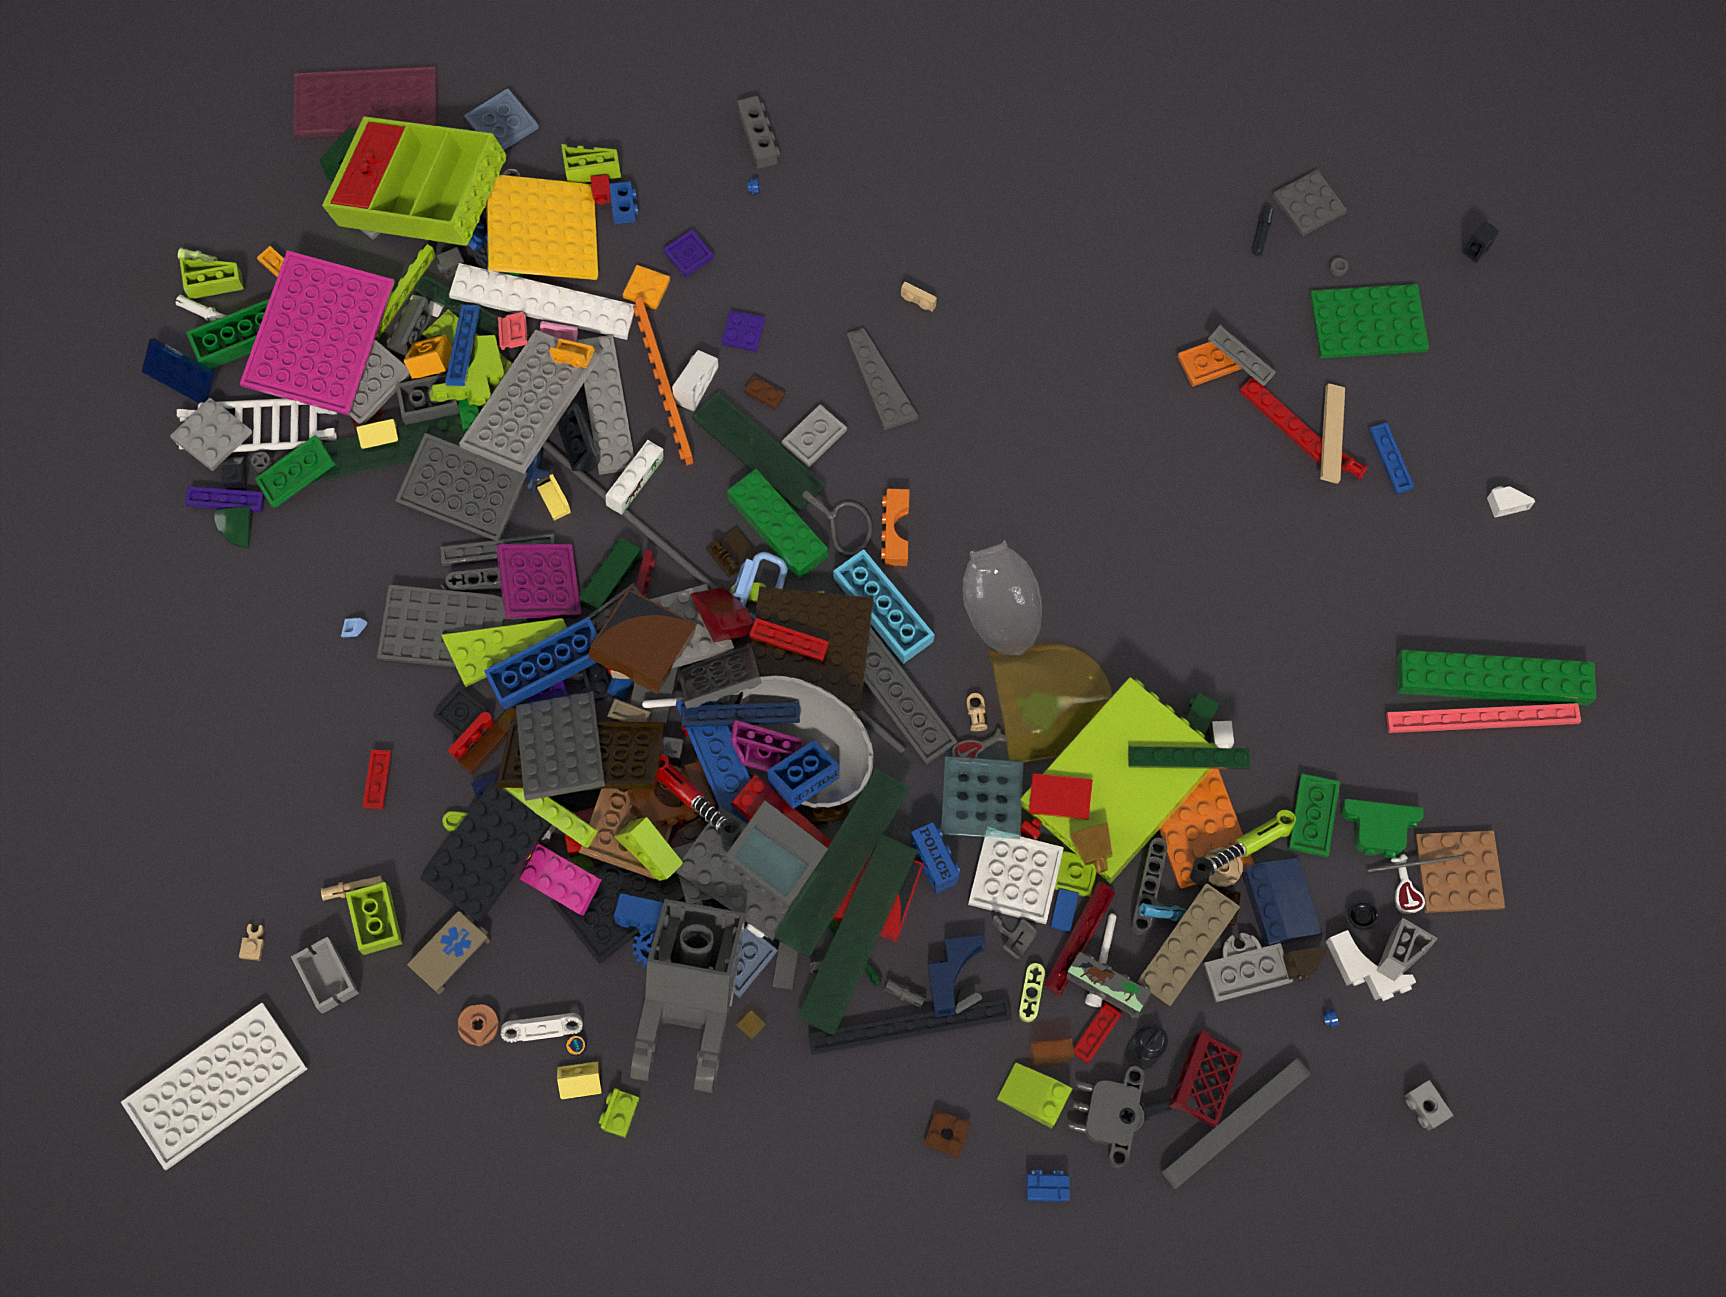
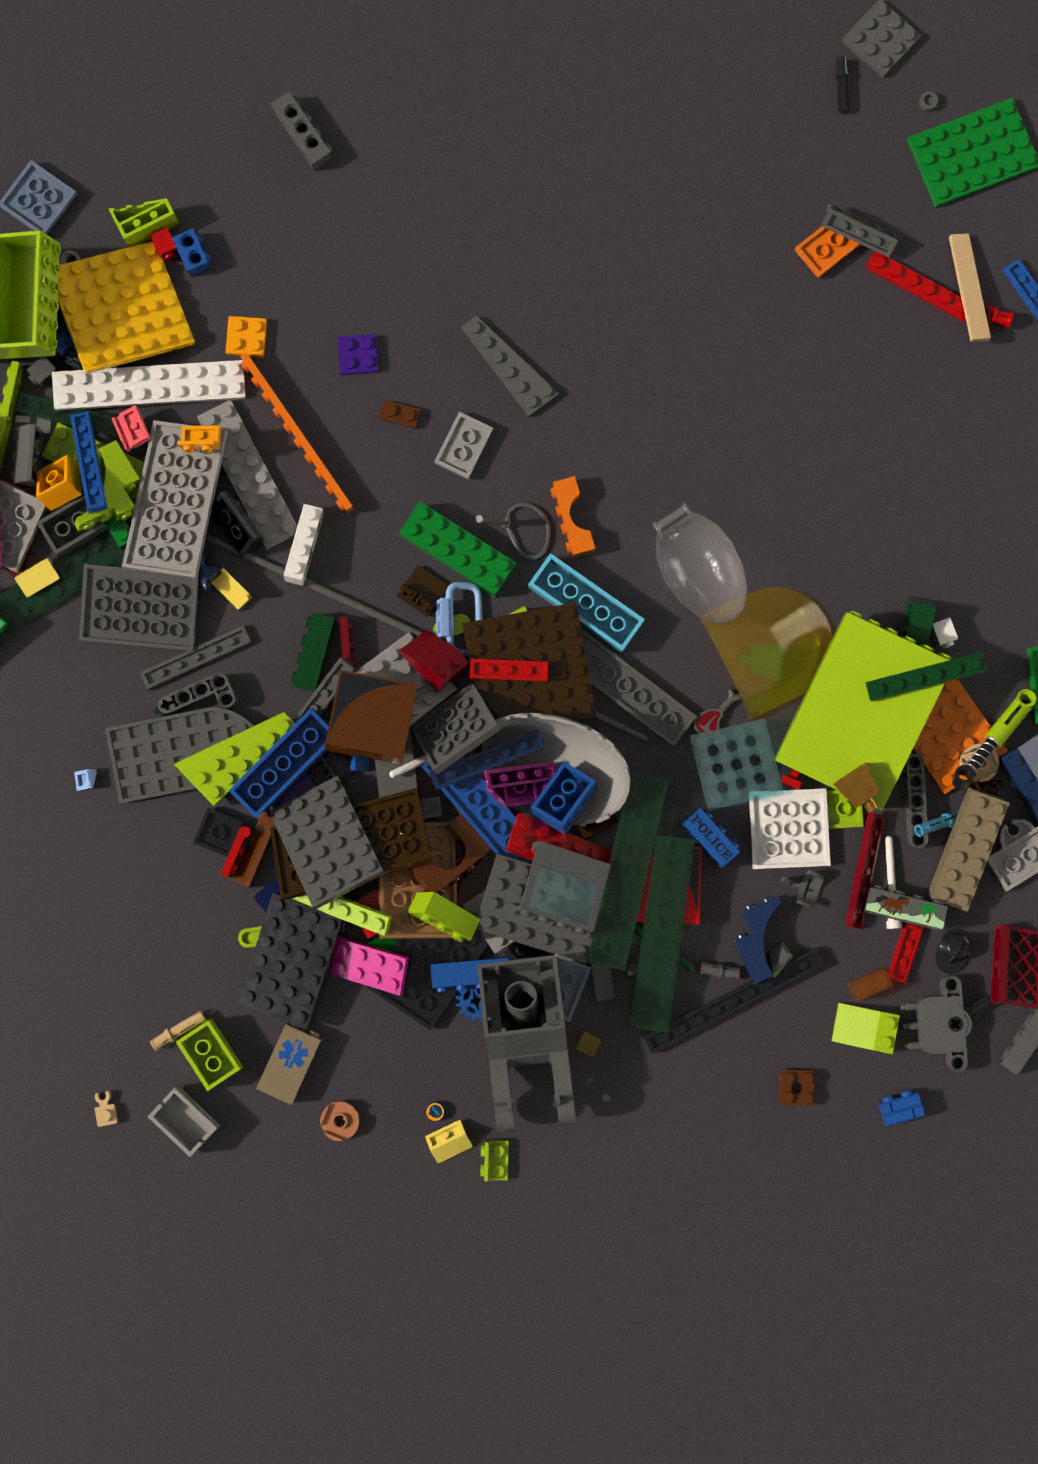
camera: 10 degrees left, 15 degrees up
(213, 1086) = (120, 1249): white plate -> none
(377, 779) = (163, 920): red plate -> none
(538, 580) = (247, 680): magenta plate -> none
(541, 1027) = (398, 1106): white plate -> none
(559, 331) = (177, 414): bright pink plate -> none
(625, 712) = (379, 787): dark tan tile -> none
(688, 253) = (276, 287): dark purple plate -> none
(694, 380) = (328, 423): white wedge -> none
(694, 799) = (471, 856): piece -> none
(753, 186) = (317, 192): blue plate -> none
(757, 450) = (414, 479): clear green plate -> none
(918, 296) = (526, 266): tan plate -> none
(976, 712) = (706, 680): tan connector -> none
(1034, 1008) = (827, 920): yellowish green beam -> none
(1060, 796) = (813, 748): red tile -> none
(1064, 910) = (843, 847): blue tile -> none

